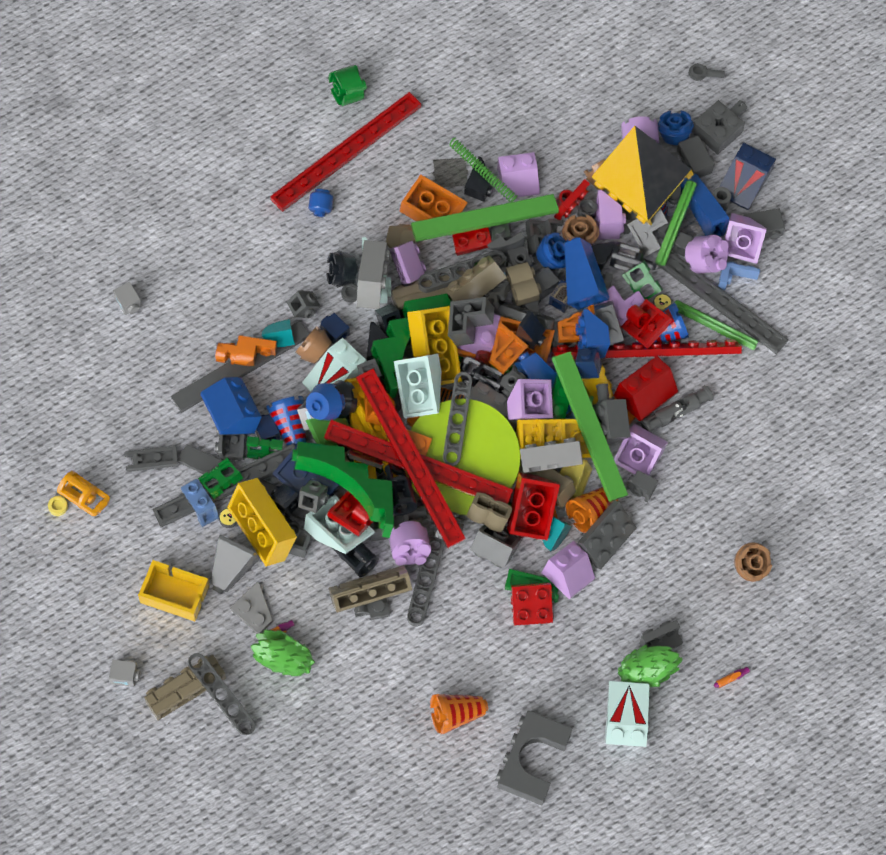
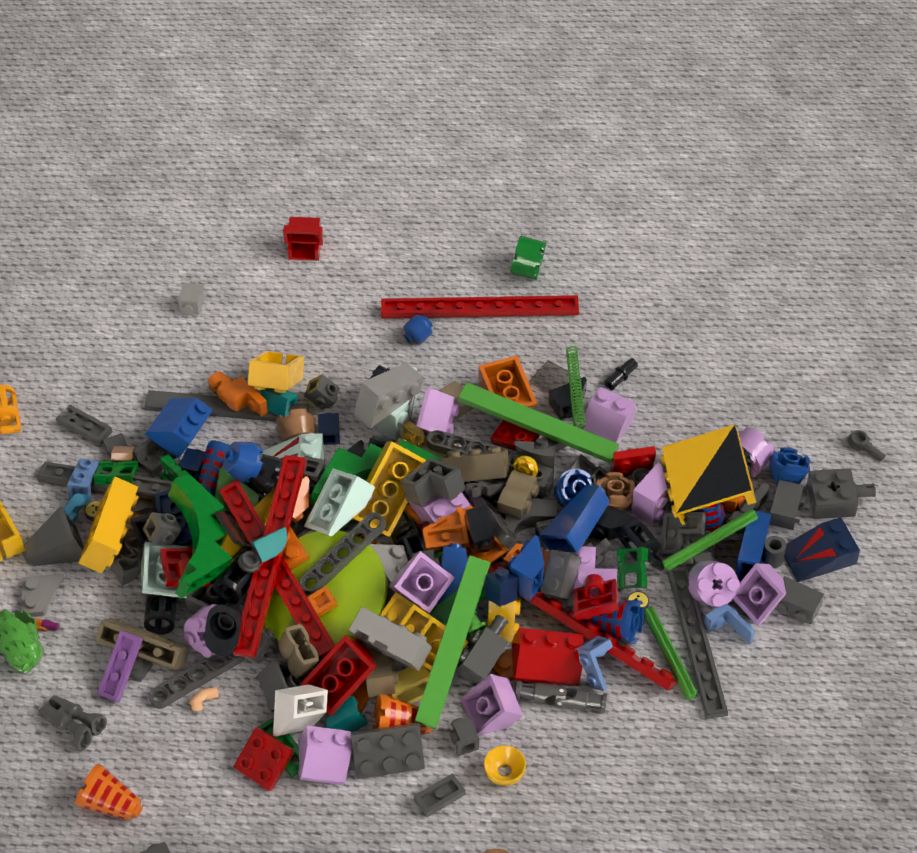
camera: 45 degrees right, 15 degrees down
(165, 186) = (303, 238): none -> red plate
(208, 459) = (122, 453): none -> medium nougat tile
(216, 524) = (76, 504): none -> dark azure plate
(268, 316) = (269, 372): none -> yellow piece
(368, 683) = (63, 719): none -> dark grey piece
(374, 616) = (120, 666): none -> medium lavender plate
(405, 474) = (249, 561): none -> dark grey plate
(408, 291) = (413, 434): none -> clear yellow plate
(409, 450) = (270, 544): none -> teal brick
(432, 536) = (222, 629): none -> black piece
(443, 594) = (202, 695): none -> light nougat arm
(473, 463) = (322, 601): none -> orange plate
(495, 134) = (620, 374): none -> black axle
(512, 258) = (526, 465): none -> yellow plate
(528, 551) = (298, 708): none -> white slope
(664, 538) = (439, 795): none -> dark grey plate
(677, 367) = (587, 656): none -> medium blue bracket
(688, 477) = (504, 756): none -> yellow piece

